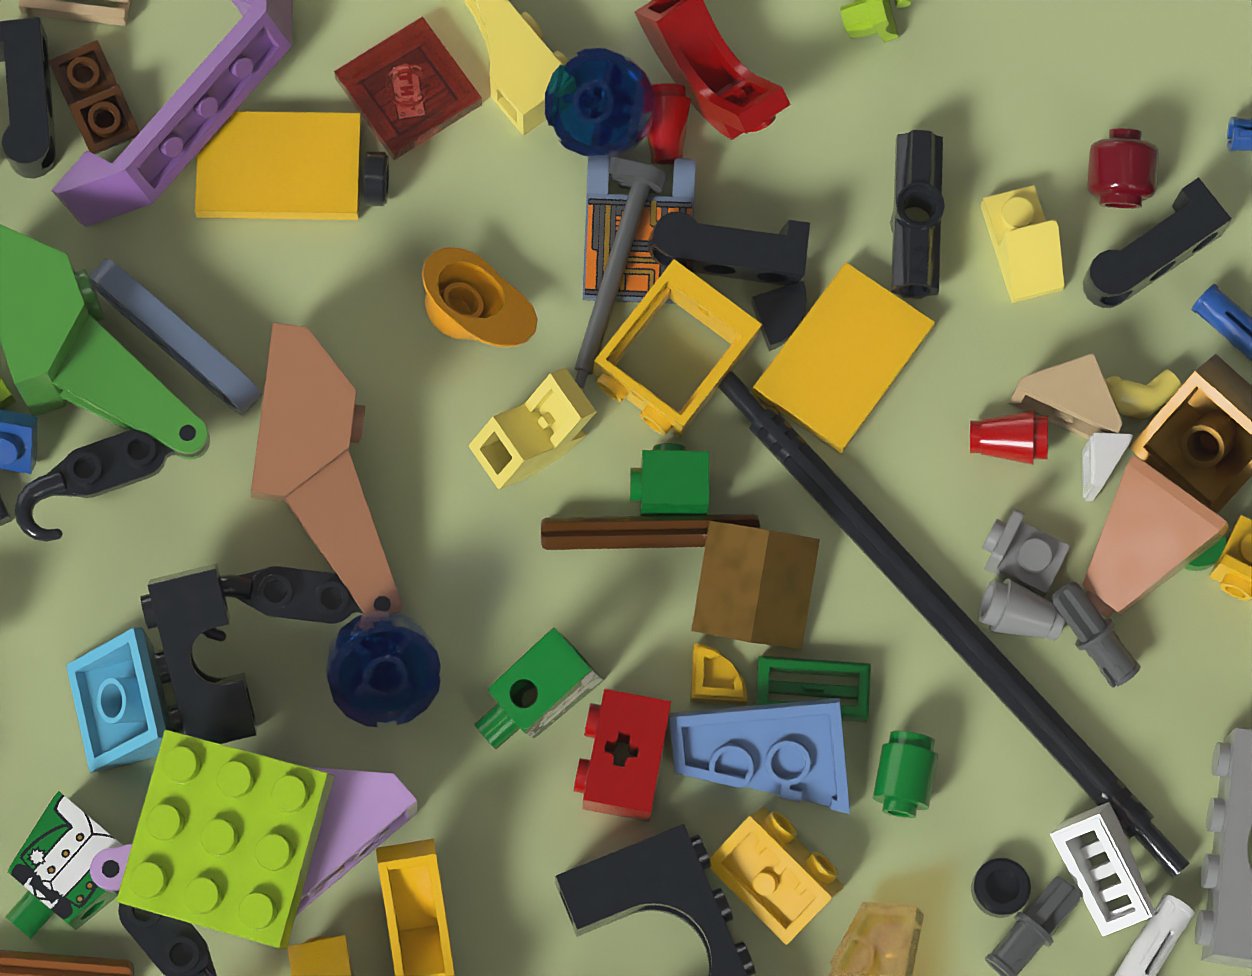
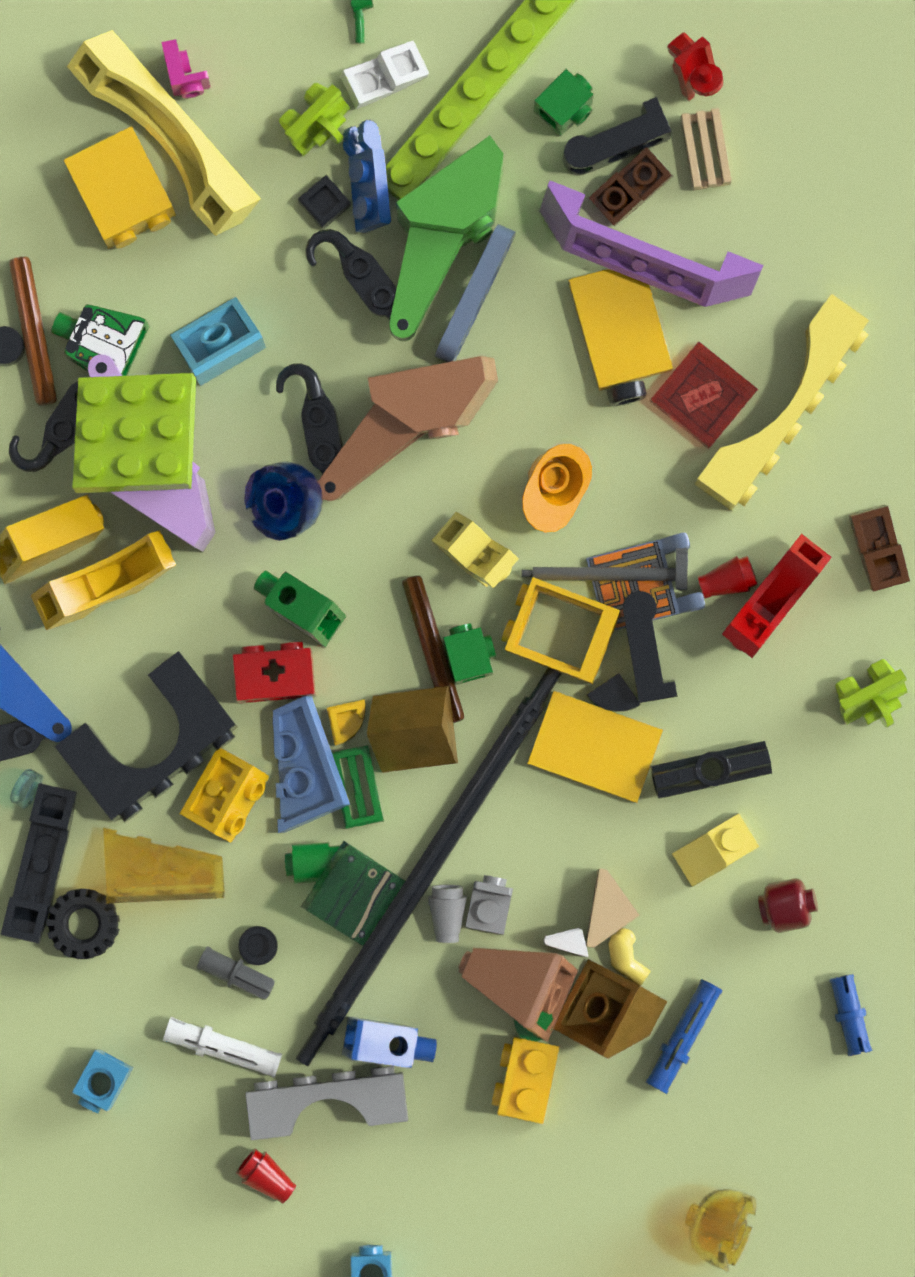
camera: 80 degrees right, 10 degrees up
(183, 609) = (229, 395): black arch -> none
(600, 103) = (718, 529): clear blue cylinder -> none
(964, 729) = (353, 893): none -> clear green tile
(1011, 437) = (569, 877): red cone -> none
(1095, 634) = (443, 965): dark grey axle -> none
(1121, 861) = (294, 1017): white slope -> none
(1123, 273) = (708, 921): black leg -> none
(1184, 744) = (370, 1041): none -> torso

